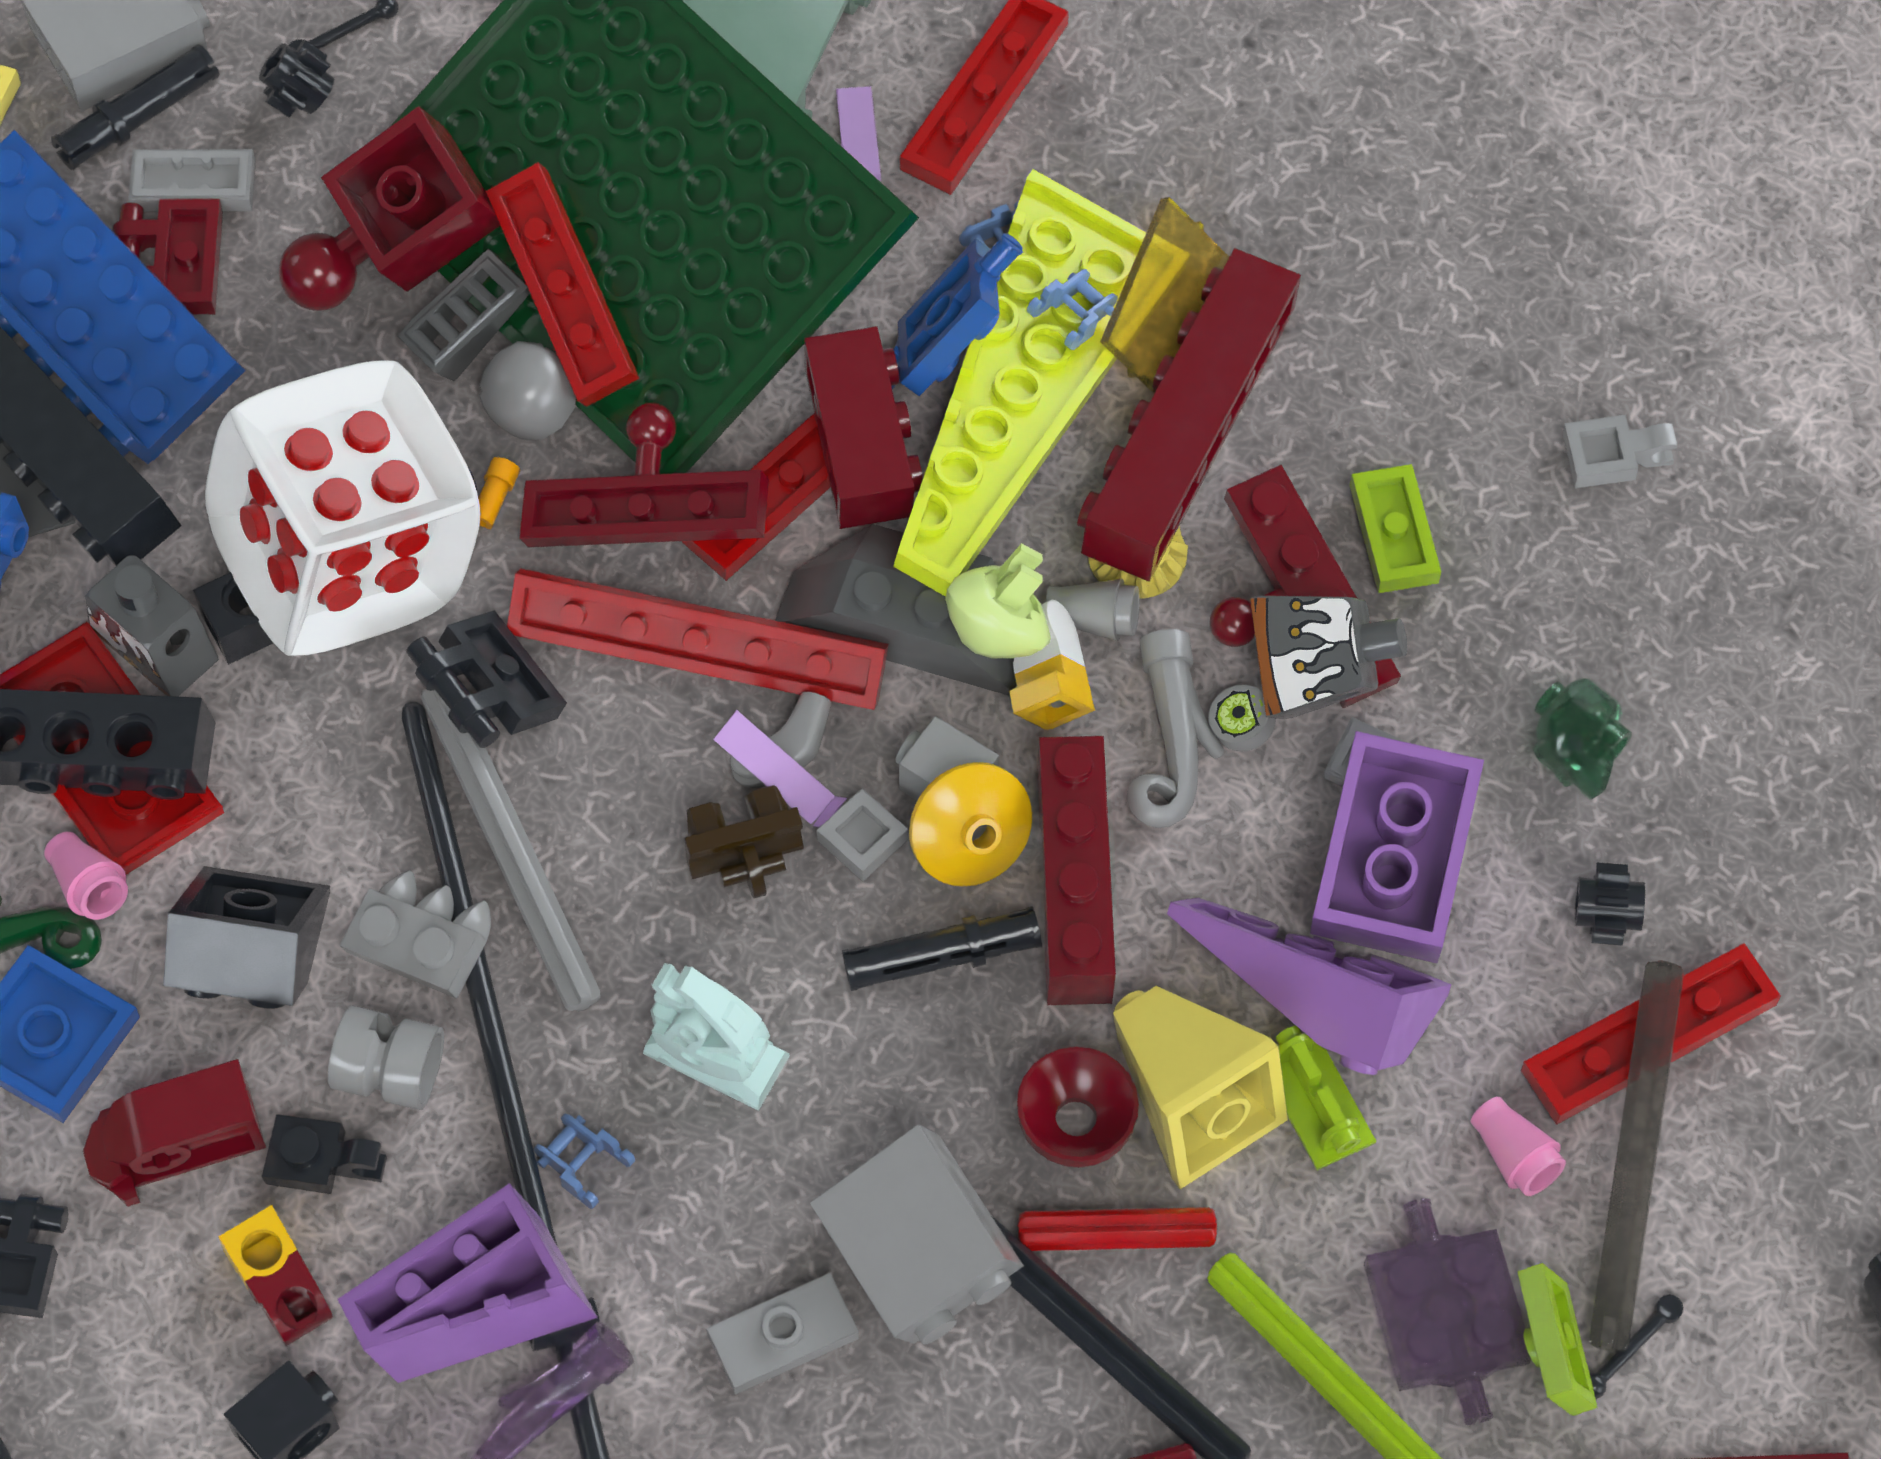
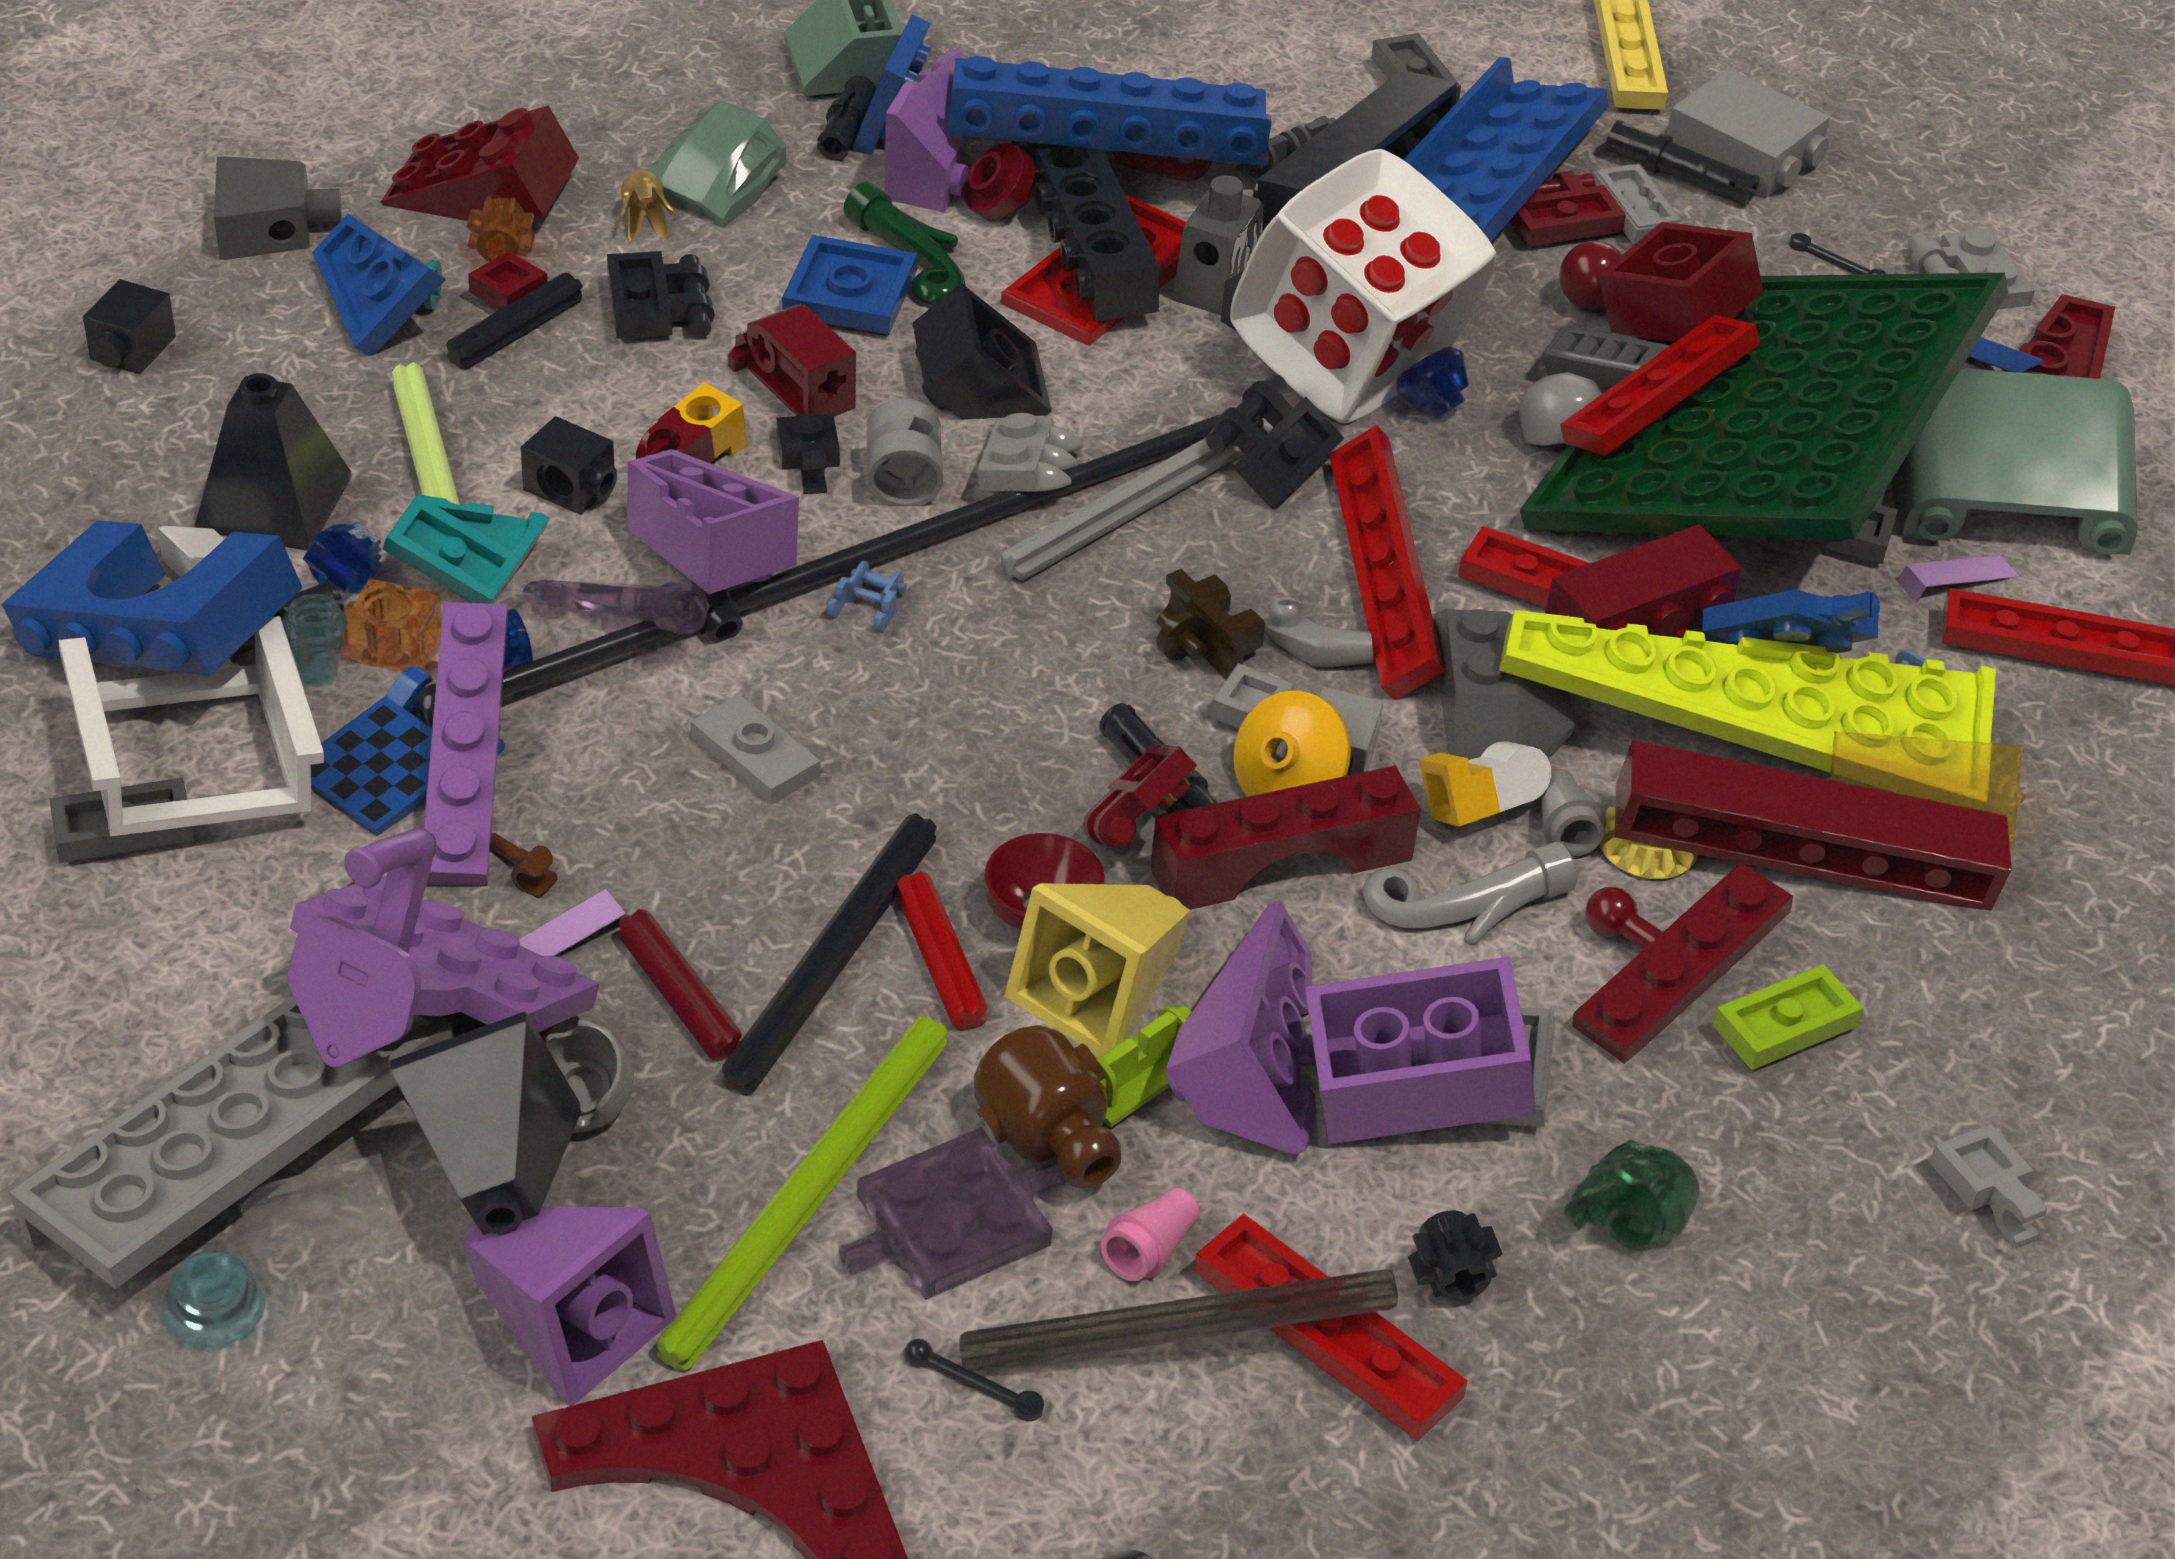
camera: 70 degrees right, 20 degrees down
(87, 878) = (989, 270): bright pink cone -> none
(296, 78) = (1769, 227): black gear -> none
(498, 481) = (1472, 425): light orange piece -> none
(647, 504) = (1493, 495): dark red plate -> none
(712, 1036) = (1006, 625): light aqua piece -> none
(777, 768) = (1286, 621): lavender piece -> none
(917, 1236) = (869, 791): light grey brick -> none
(997, 607) = (1503, 696): yellowish green piece -> none
(1009, 963) = (1149, 781): none -> dark red plate
(1057, 294) = (1865, 696): medium blue piece -> none
(1240, 718) = (1513, 936): tile -> none
(1319, 651) = (1597, 951): torso -> none
(1365, 1189) = (1048, 1103): none -> reddish brown piece
(1555, 1340) = (946, 1290): lime plate -> none

